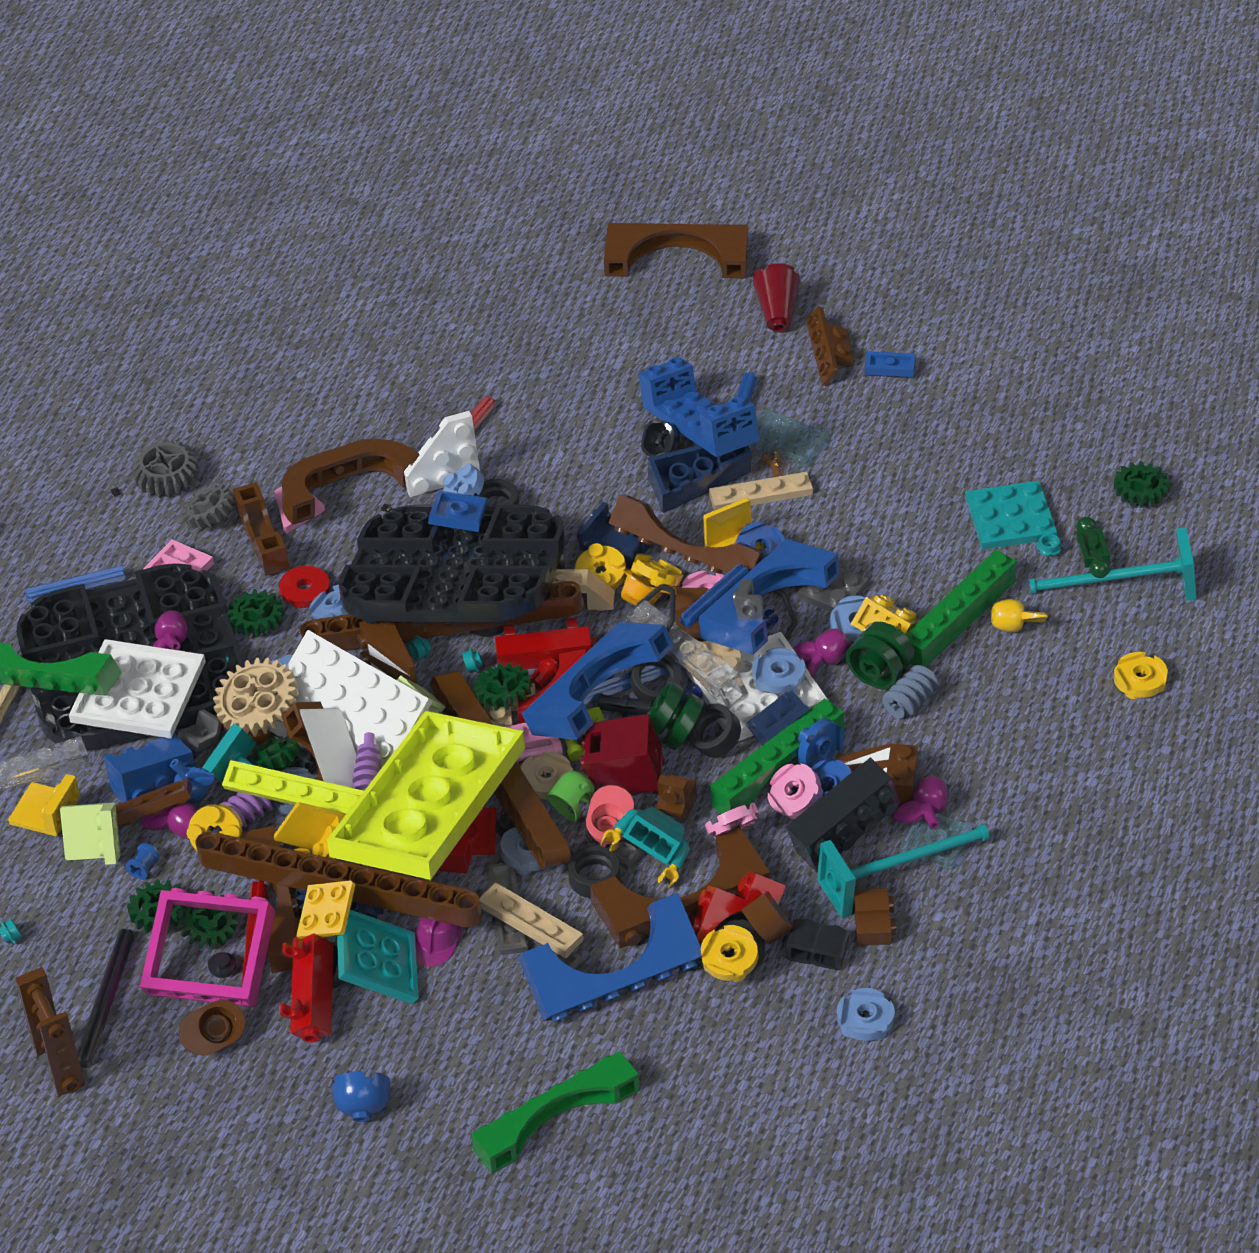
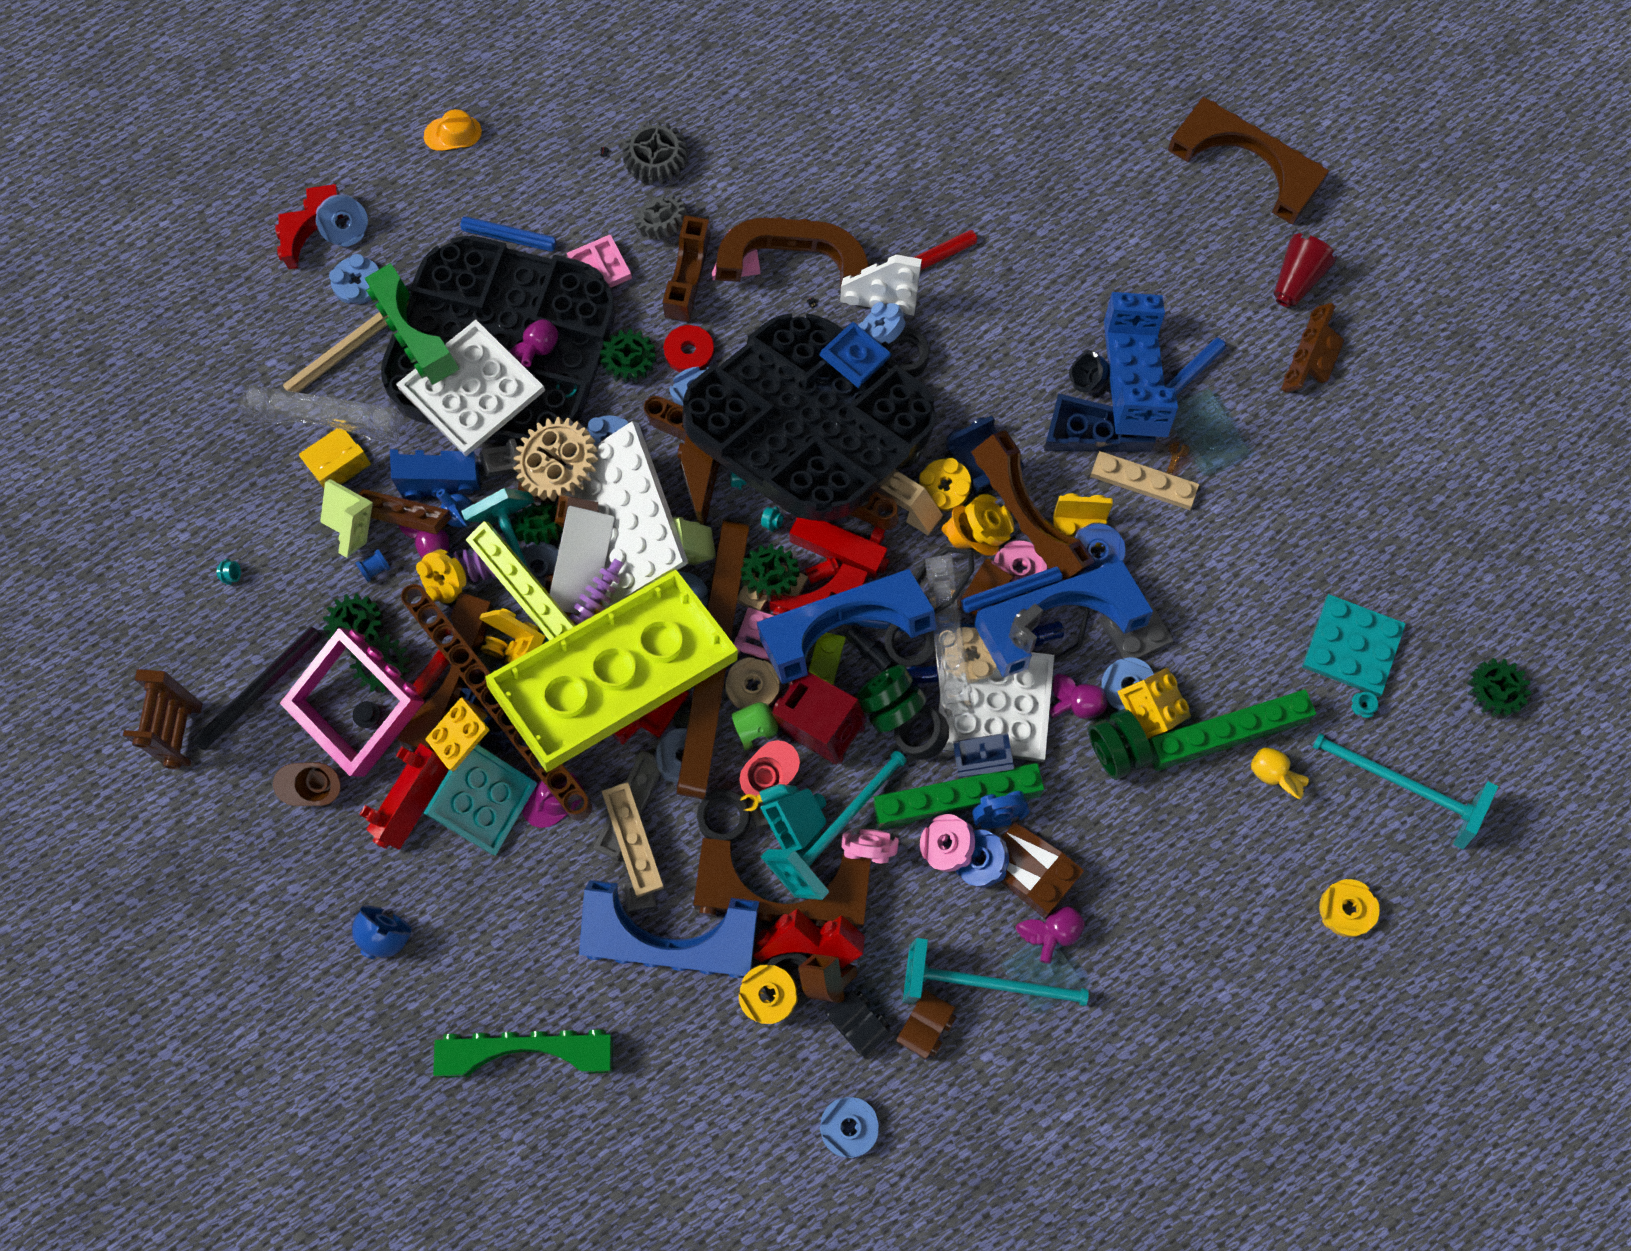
camera: 30 degrees right, 25 degrees up
(676, 796) = (840, 785): reddish brown brick -> none
(685, 858) = (794, 870): none -> teal tile
(778, 683) = (1004, 708): medium blue plate -> none
(844, 812) = (963, 911): black brick -> none
(890, 364) = (1357, 404): blue plate -> none
(910, 691) = (1124, 794): sand blue piece -> none
(1093, 547) = (1402, 735): dark green plate -> none

